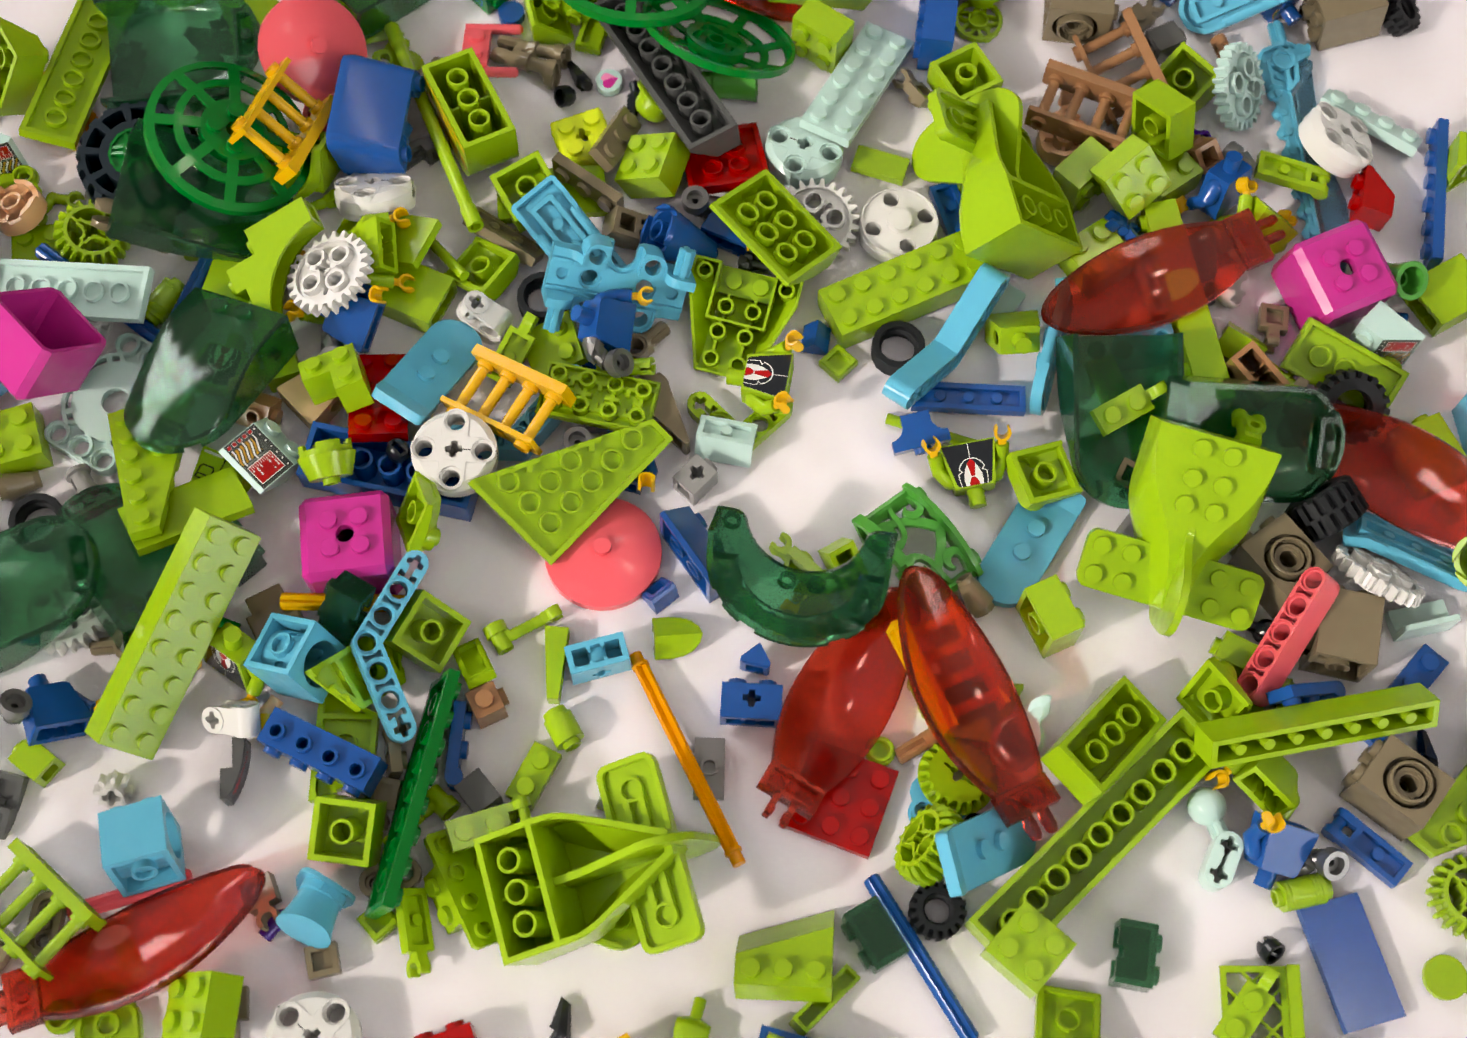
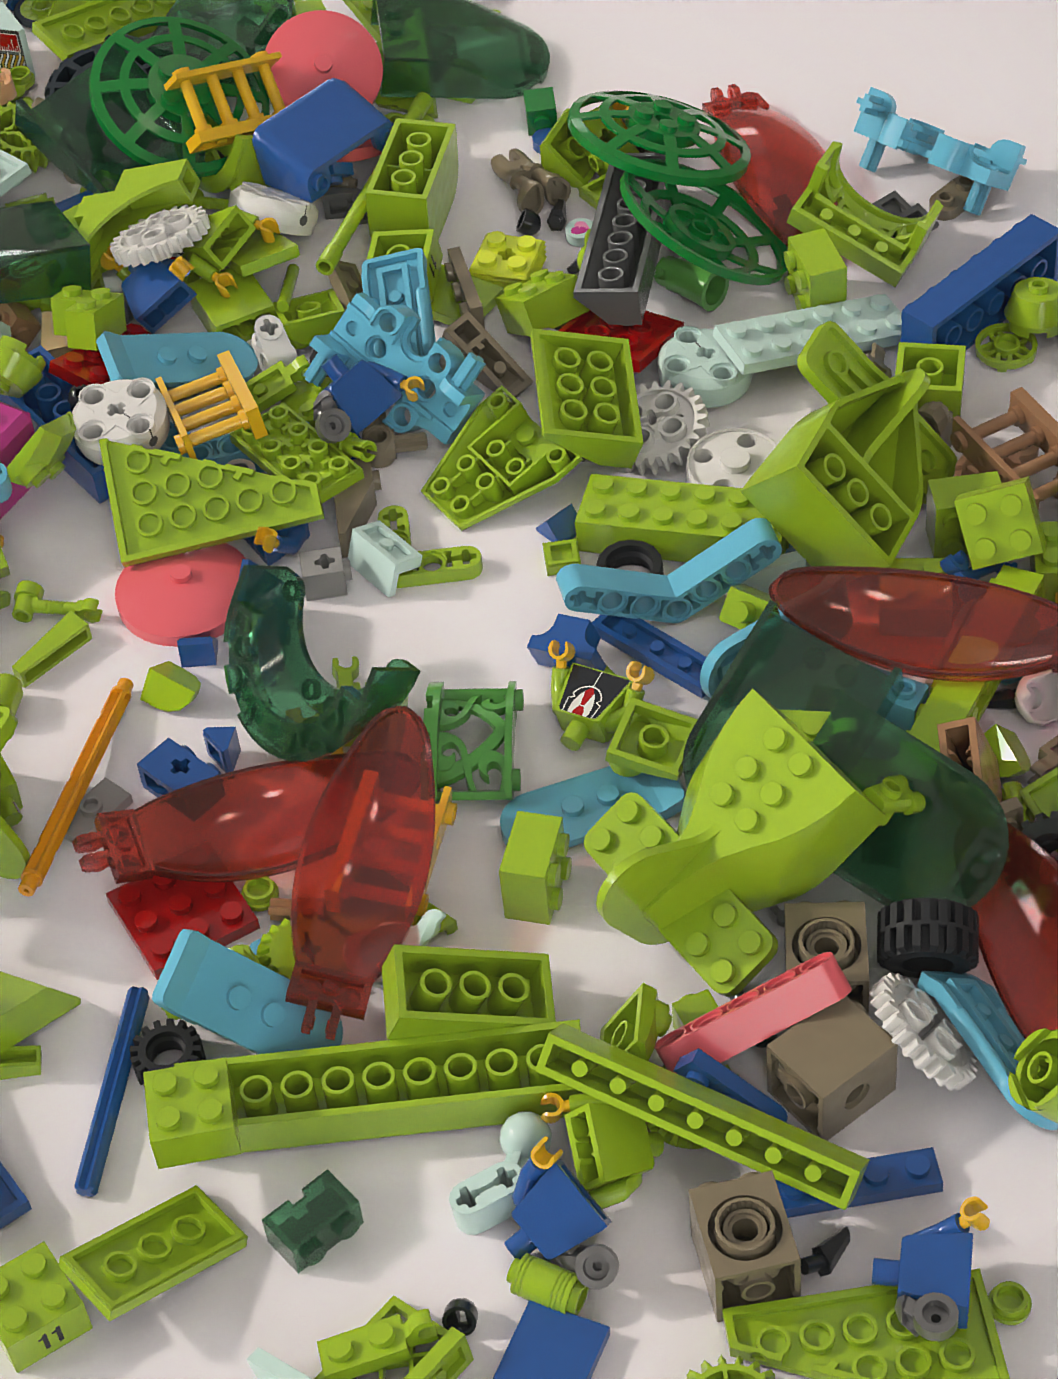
camera: 45 degrees right, 20 degrees down
(480, 39) = (481, 150): coral plate -> none
(597, 658) = (84, 658): medium azure brick -> none
(614, 139) = (517, 267): dark tan plate -> none
(673, 230) = (505, 367): blue cone -> none
(768, 376) = (472, 522): torso -> none
(874, 935) = (86, 1036): clear green brick -> none
(880, 165) = (771, 414): lime tile -> none
(975, 596) = (483, 813): dark tan cone -> none
(1367, 847) = (665, 1296): blue plate -> none
(1420, 621) = (950, 1125): light aqua panel -> none

